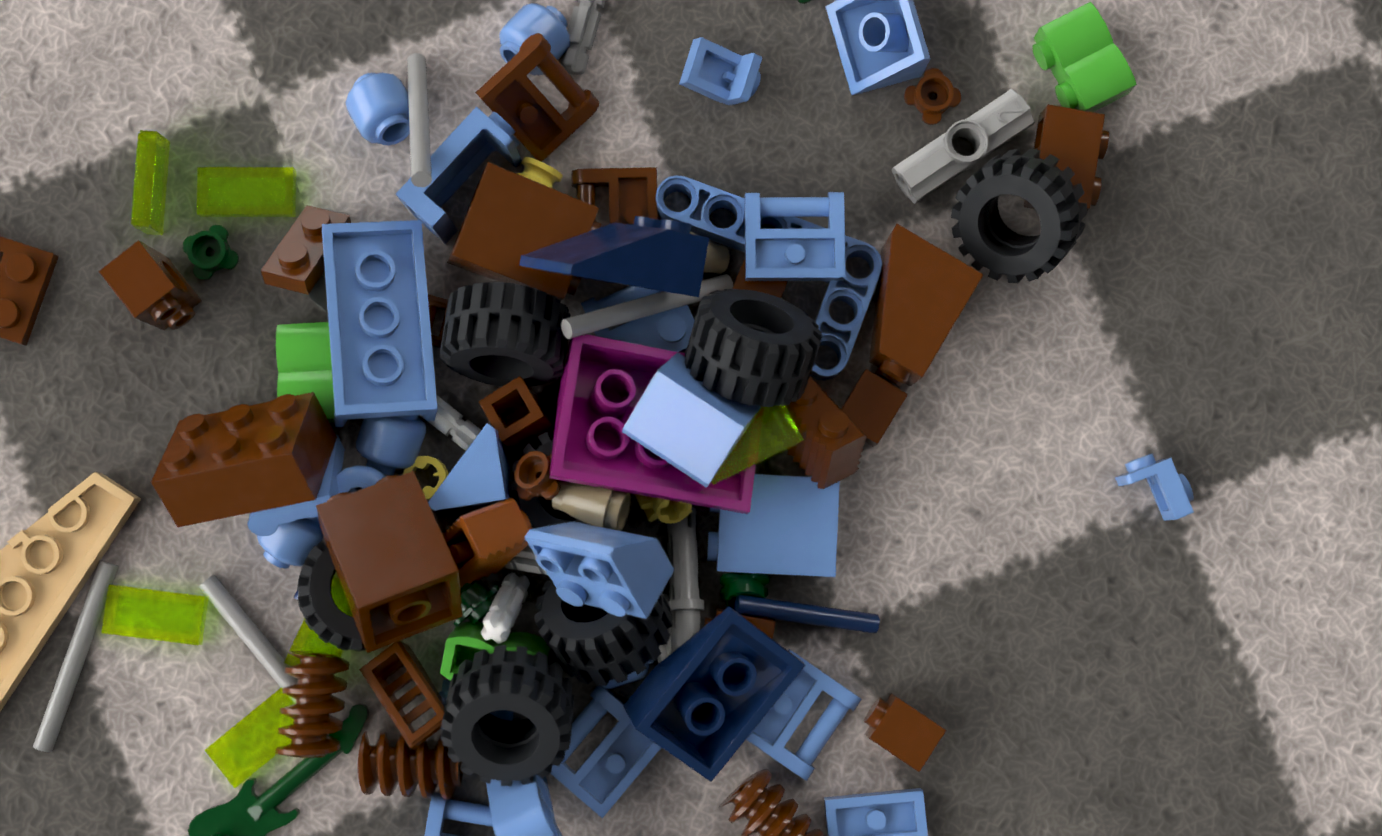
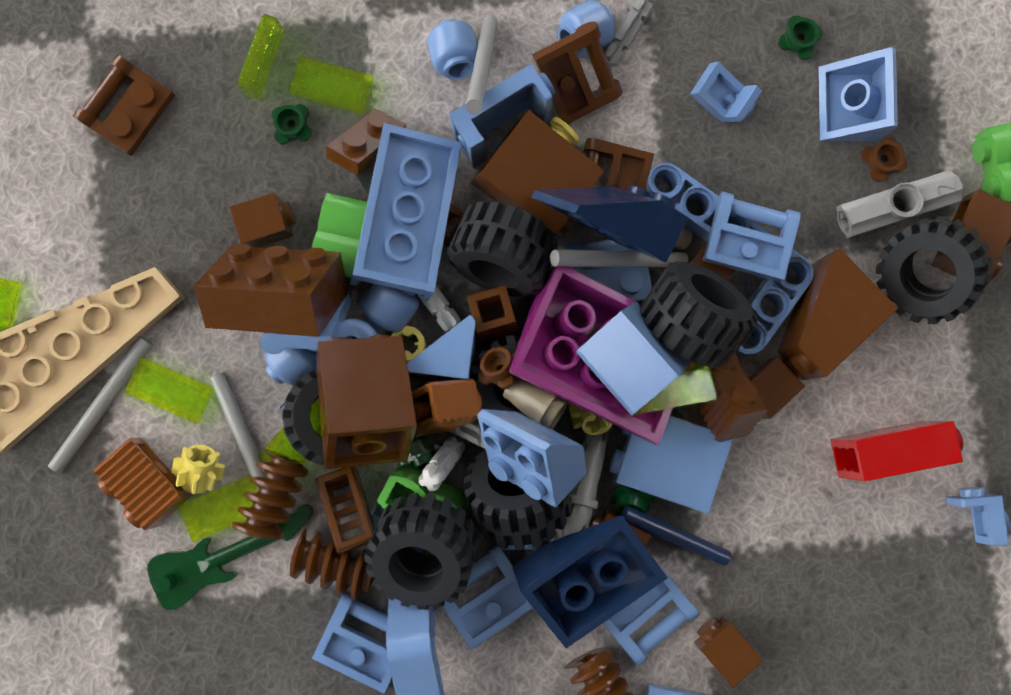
camera: 20 degrees right, 0 degrees up
(151, 287) = (238, 136): reddish brown brick -> none
(152, 736) = (140, 484): none -> dark orange brick
(210, 379) = (263, 220): none -> reddish brown brick
(216, 698) = (197, 469): none -> light yellow gear
(1034, 439) = (897, 450): none -> red brick

